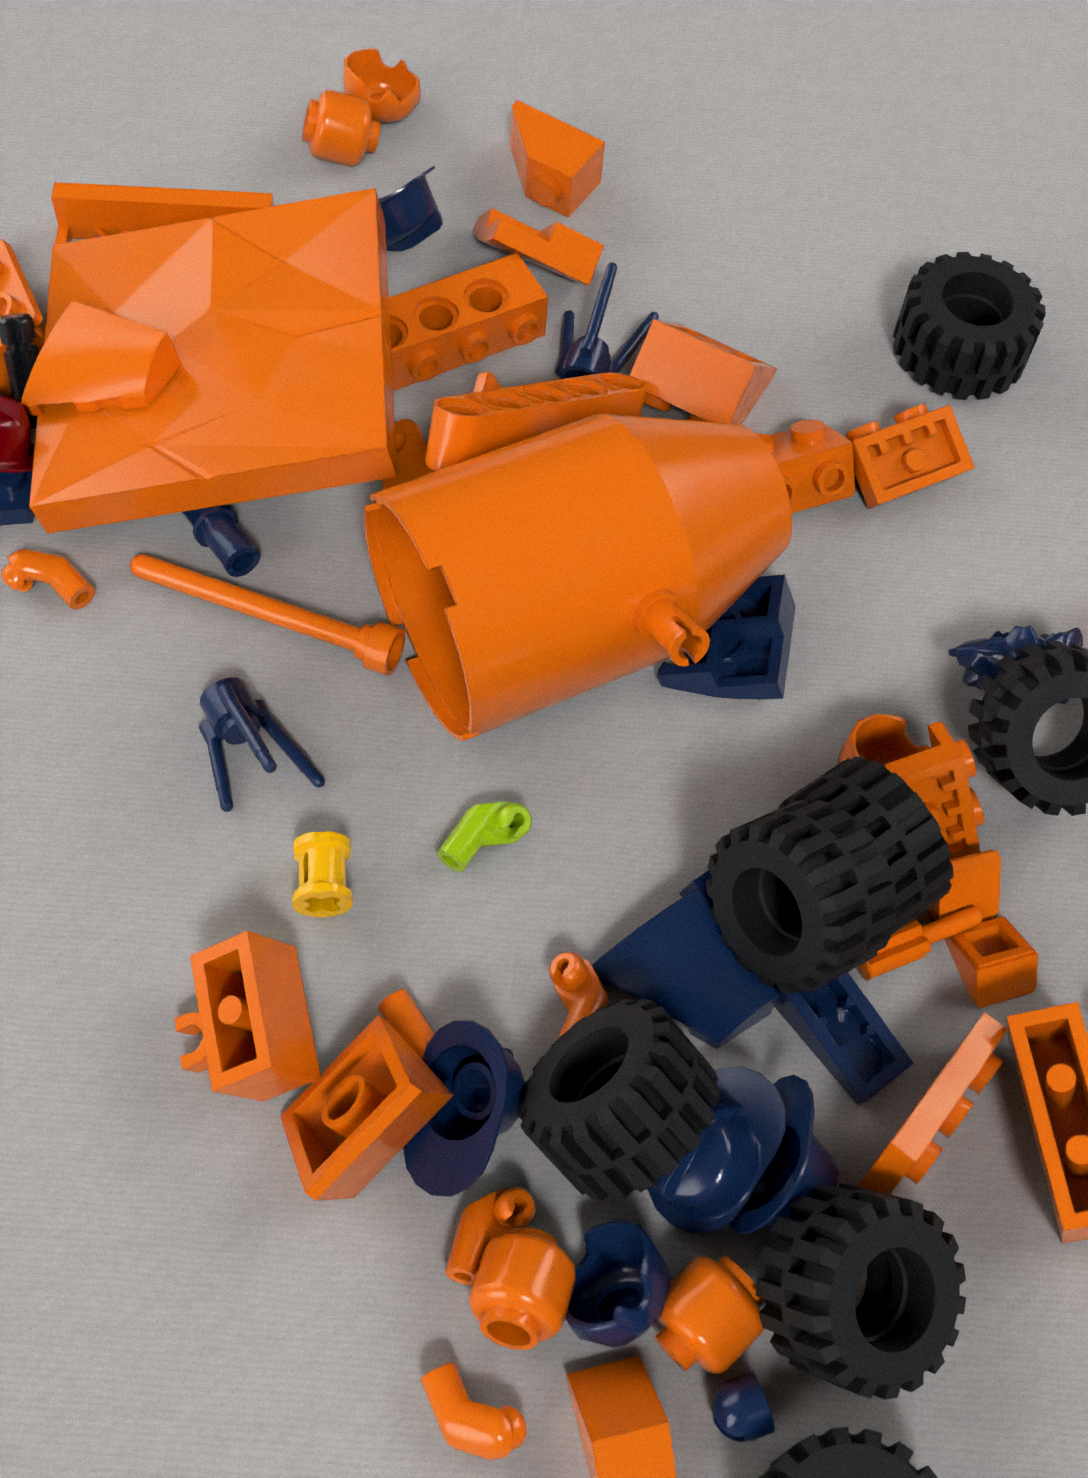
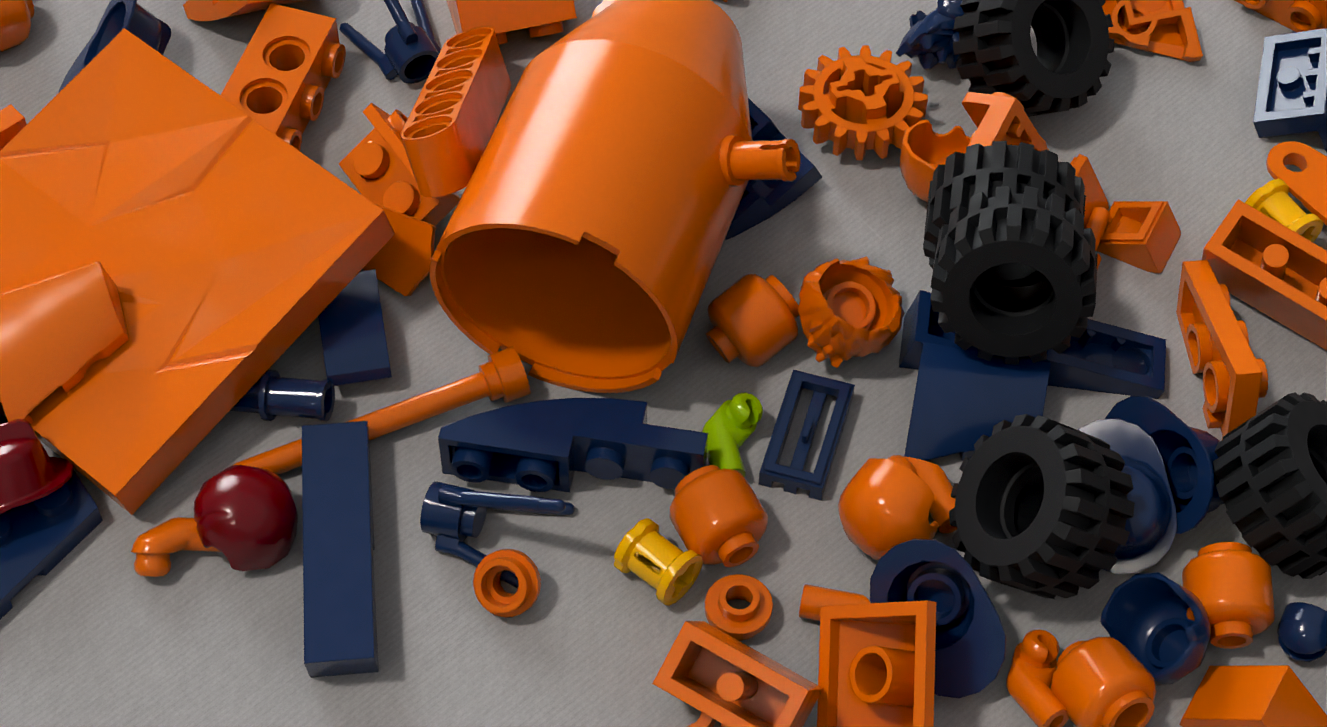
camera: 40 degrees left, 5 degrees down
(100, 596) = (247, 516): none -> dark red hair
(114, 680) = (338, 550): none -> dark blue slope
(205, 793) = (488, 586): none -> orange plate
(316, 530) = (355, 333): none -> dark blue slope
(341, 978) = (738, 623): none -> orange plate
(361, 727) = (551, 439): none -> dark blue slope
(396, 880) = (718, 516): none -> orange head
(512, 990) = (885, 507): none -> orange hair
(555, 902) = (795, 476): none -> dark blue tile
(596, 759) = (753, 320): none -> orange head
(673, 812) = (849, 309): none -> orange hair
(877, 665) = (858, 100): none -> orange gear

